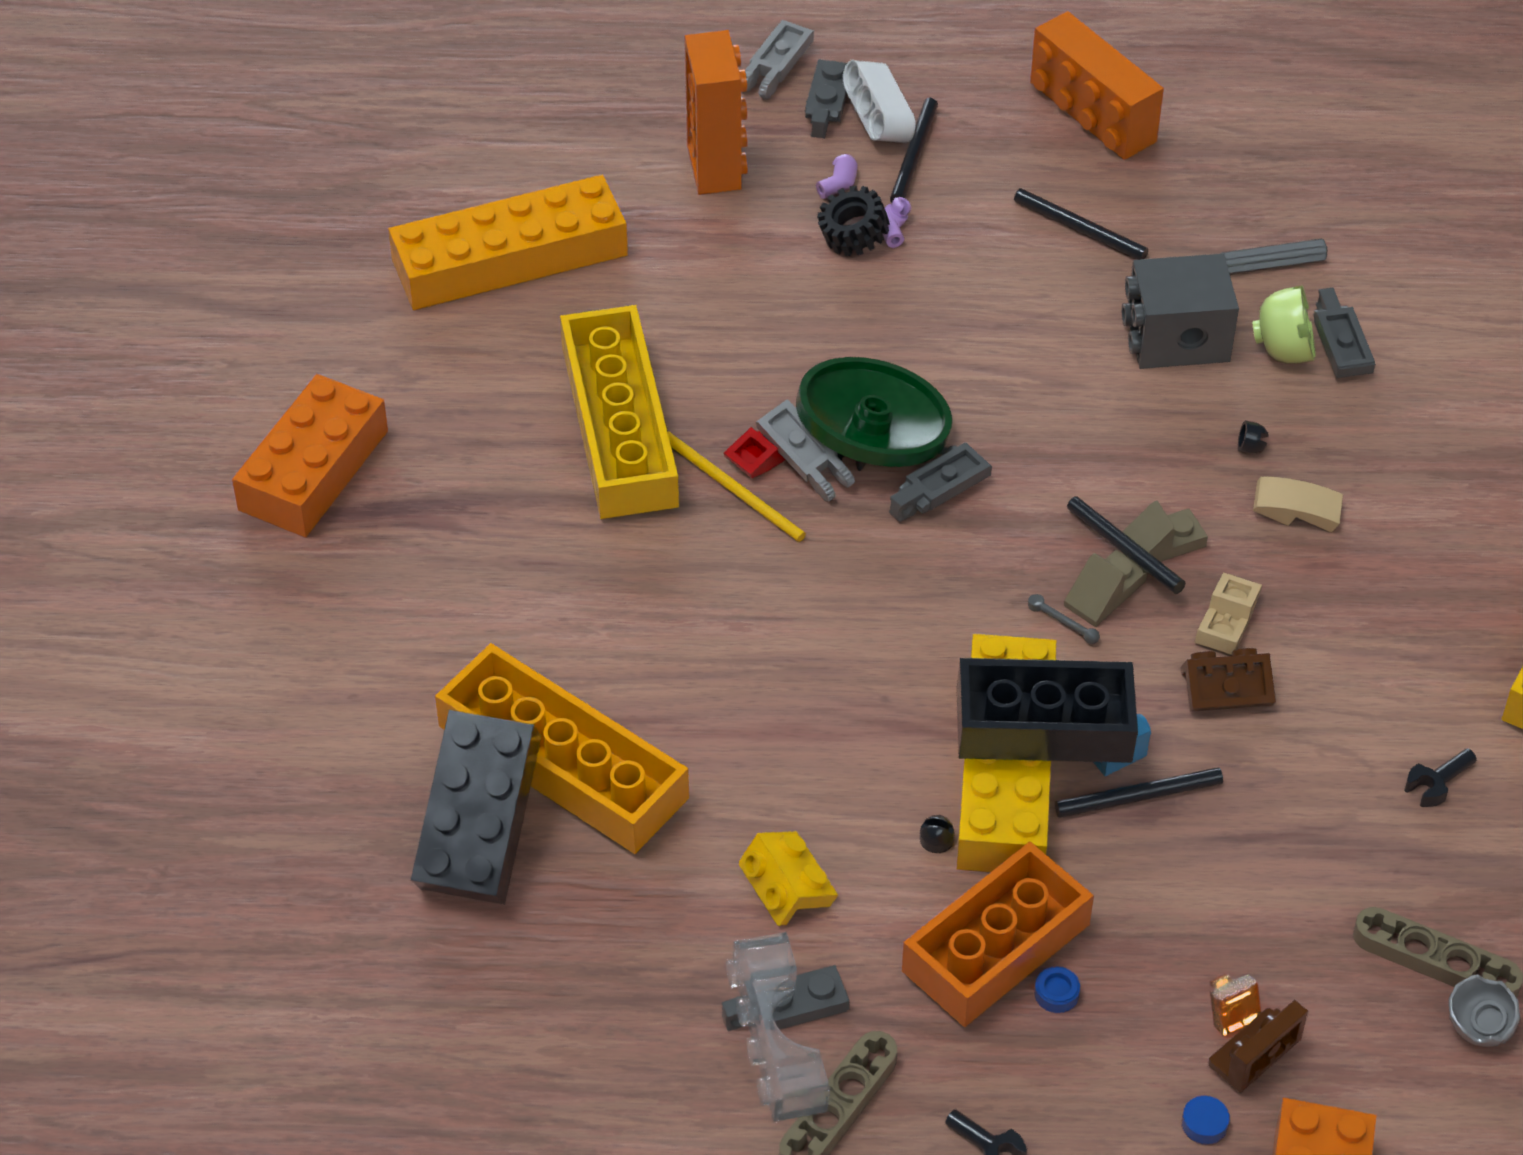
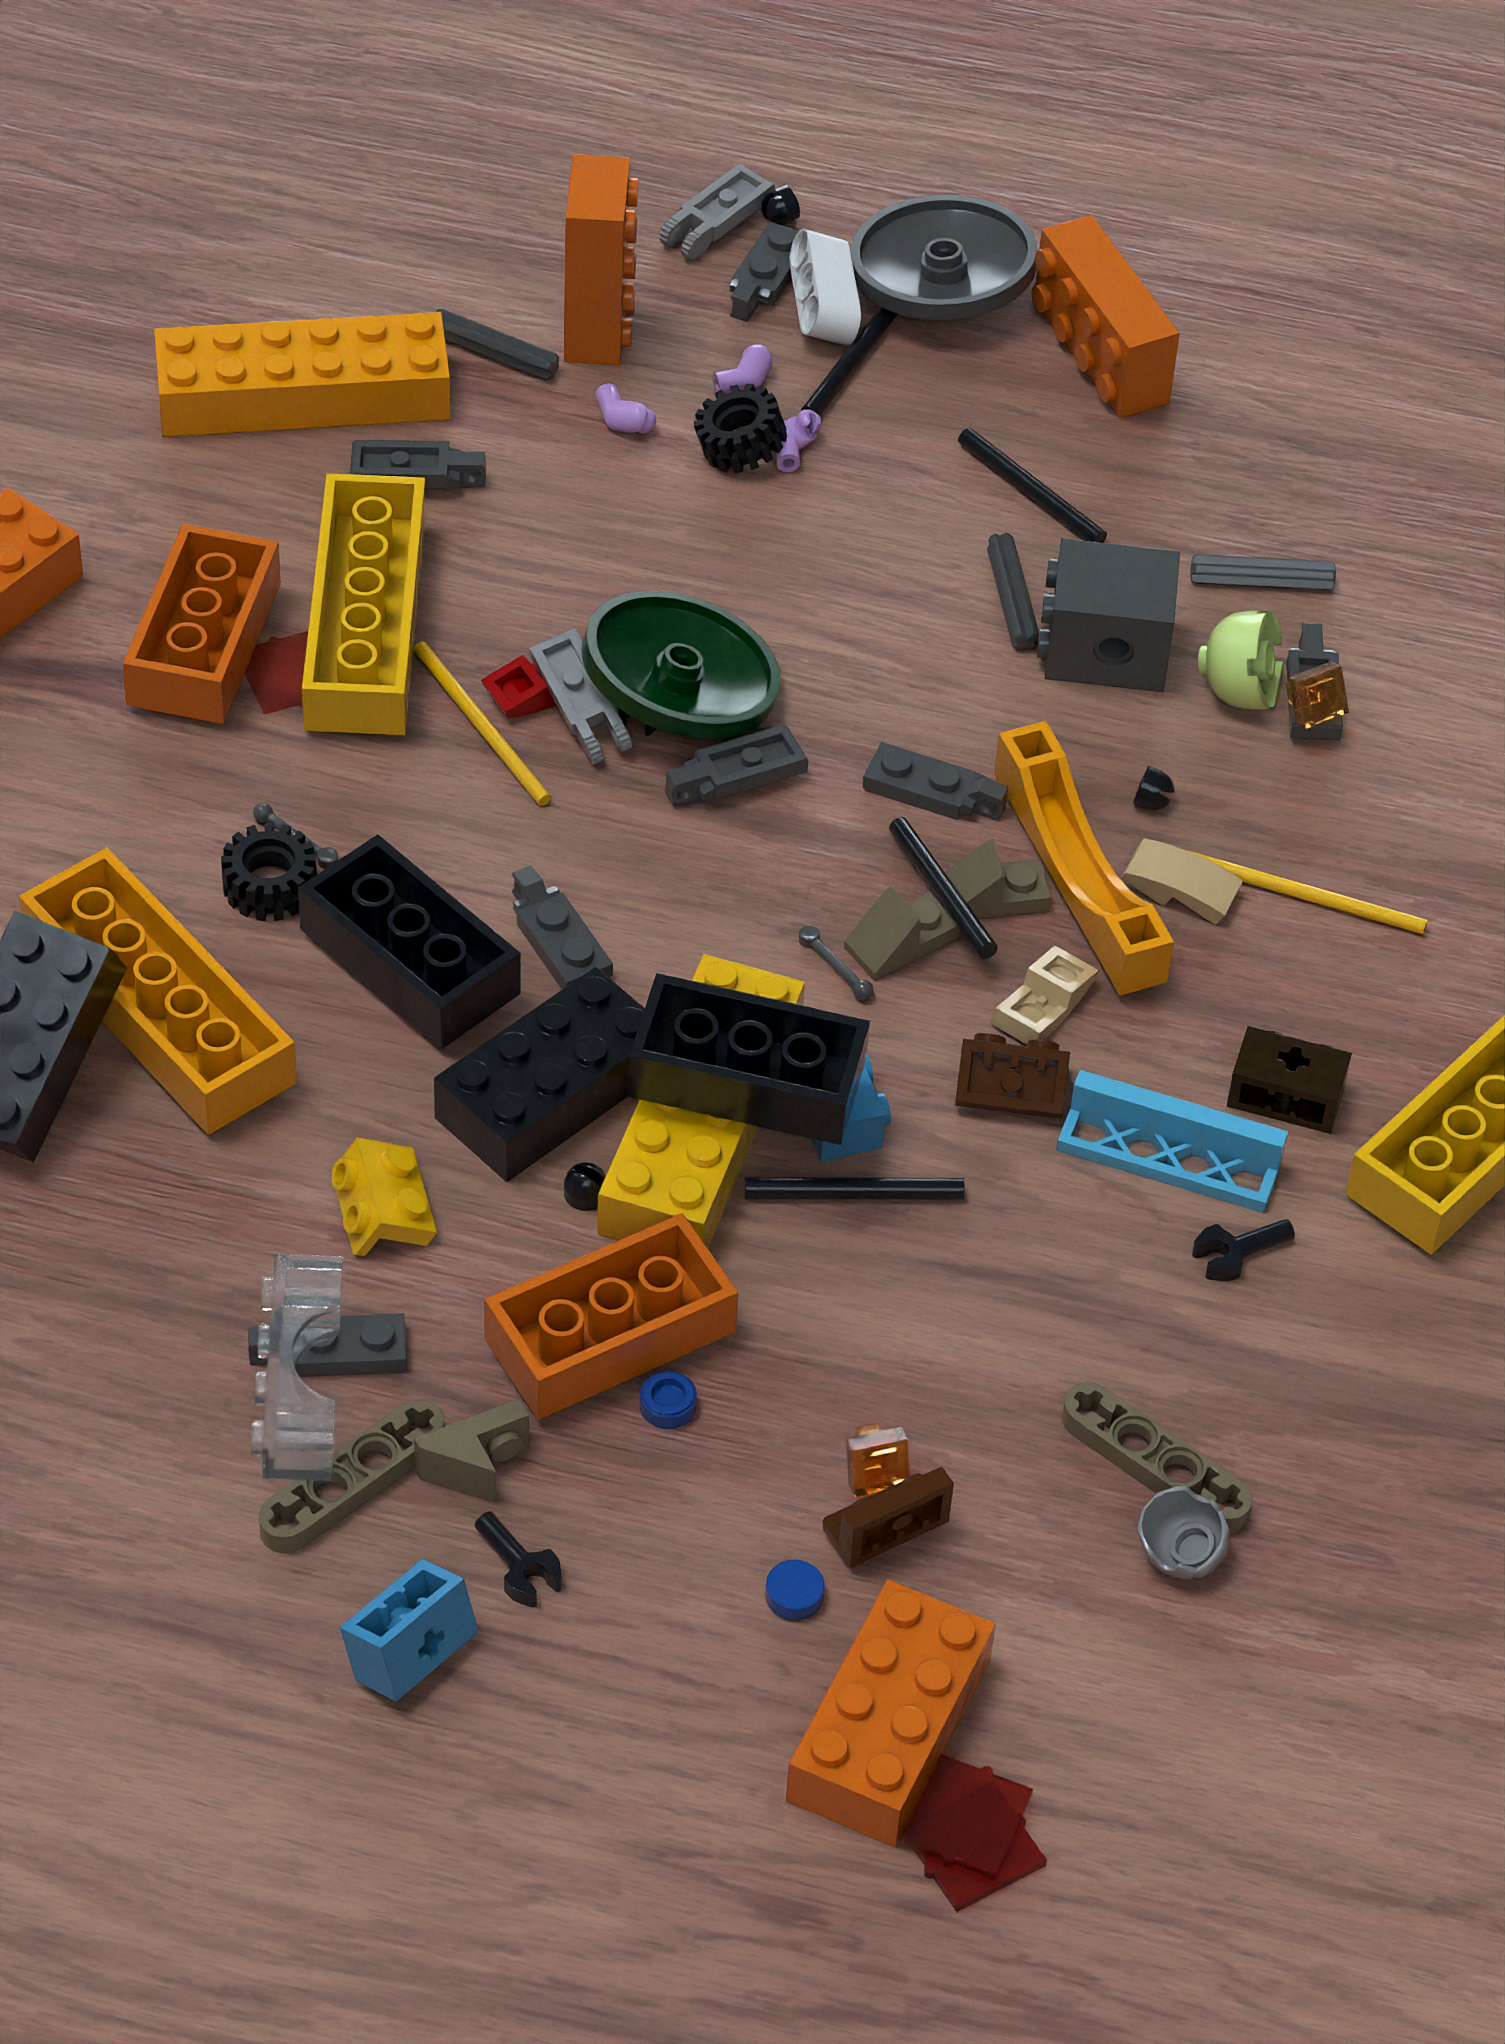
camera: 10 degrees right, 0 degrees up
(499, 451) = (202, 623): none -> orange brick
(564, 475) = (277, 672): none -> clear red piece
(613, 617) = (264, 850): none -> black tyre
(618, 292) = (432, 460): none -> dark grey hinge
(650, 192) = (499, 345): none -> dark grey axle
(650, 614) = (325, 856): none -> dark grey hinge
(743, 669) = (409, 941): none -> black brick
(758, 227) = (622, 414): none -> lavender arm
(822, 45) = (780, 205): none -> black hinge
(847, 639) = (556, 930): none -> dark grey hinge
(882, 752) = (542, 1075): none -> black brick
(923, 1066) = (464, 1451): none -> dark tan slope
(960, 62) = (944, 257): none -> dark grey dish
(1088, 466) = (933, 784): none -> dark grey hinge
(1095, 307) = (1013, 591): none -> dark grey axle
(1270, 550) = (1116, 922): none -> light orange arch
(1353, 342) = (1317, 694): none -> clear orange tile
(1363, 697) = (1176, 1131): none -> medium azure fence
(1404, 495) = (1323, 897): none -> yellow axle
(1432, 640) = (1289, 1079): none -> dark brown brick

